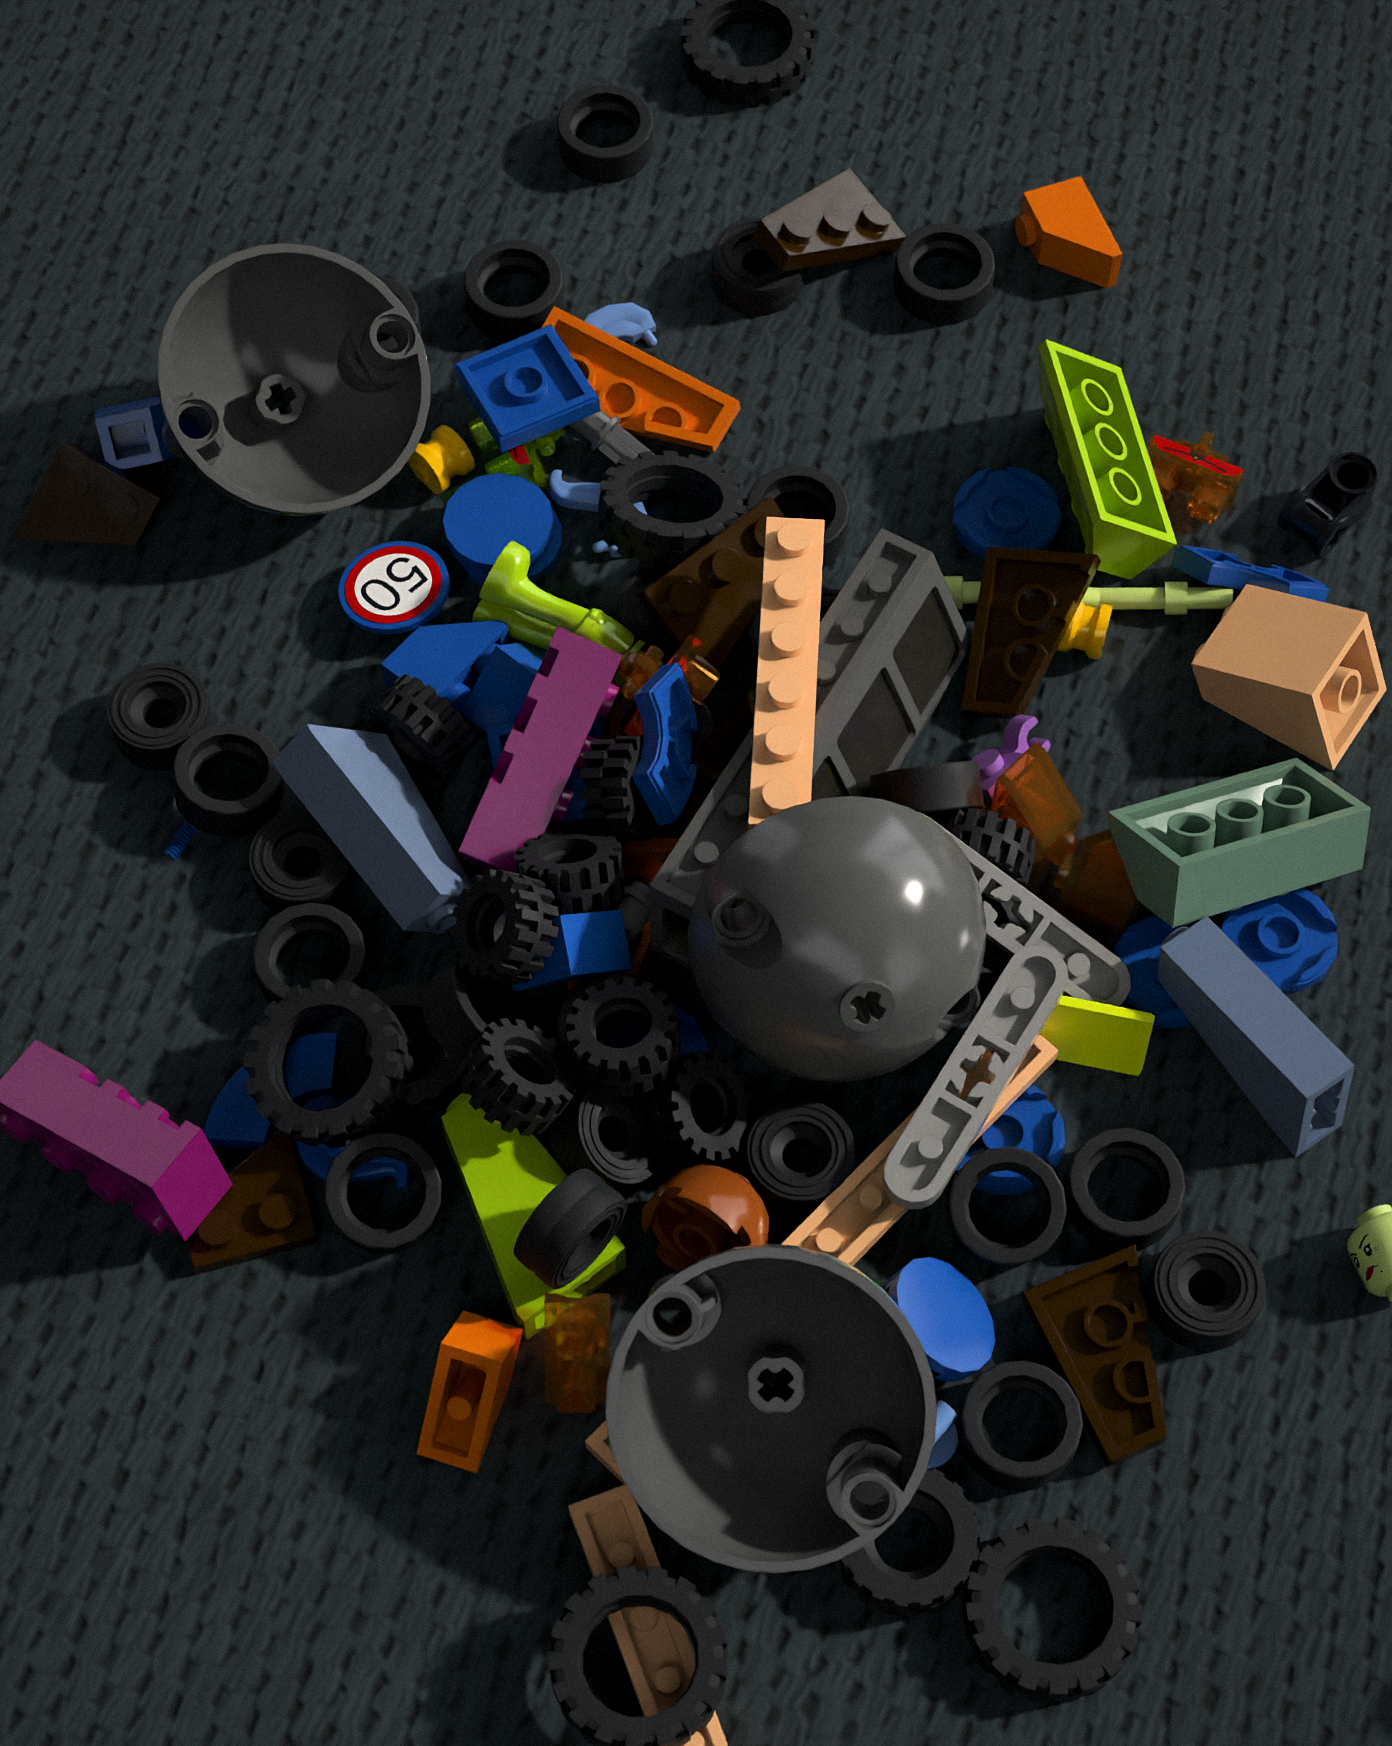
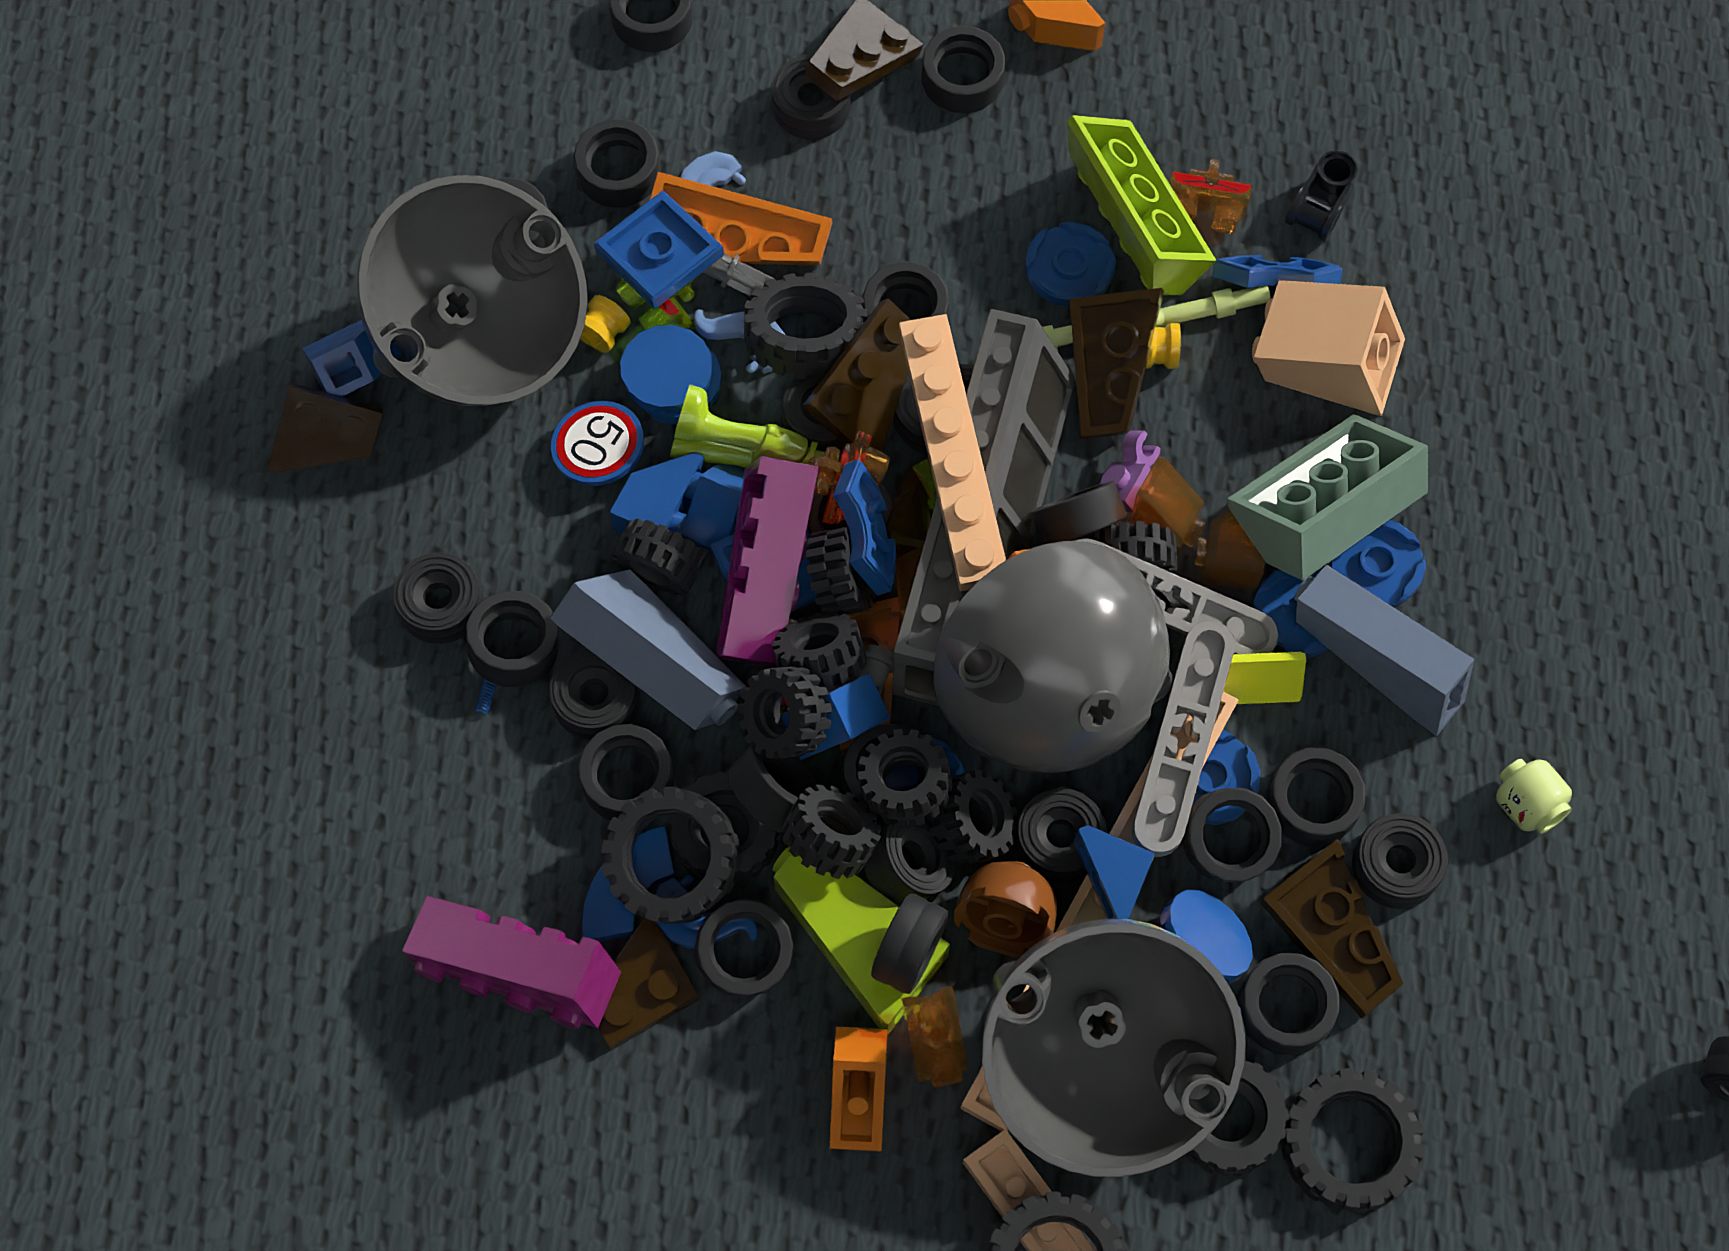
camera: 15 degrees left, 5 degrees up
(848, 1205) = (1113, 868): none -> blue slope

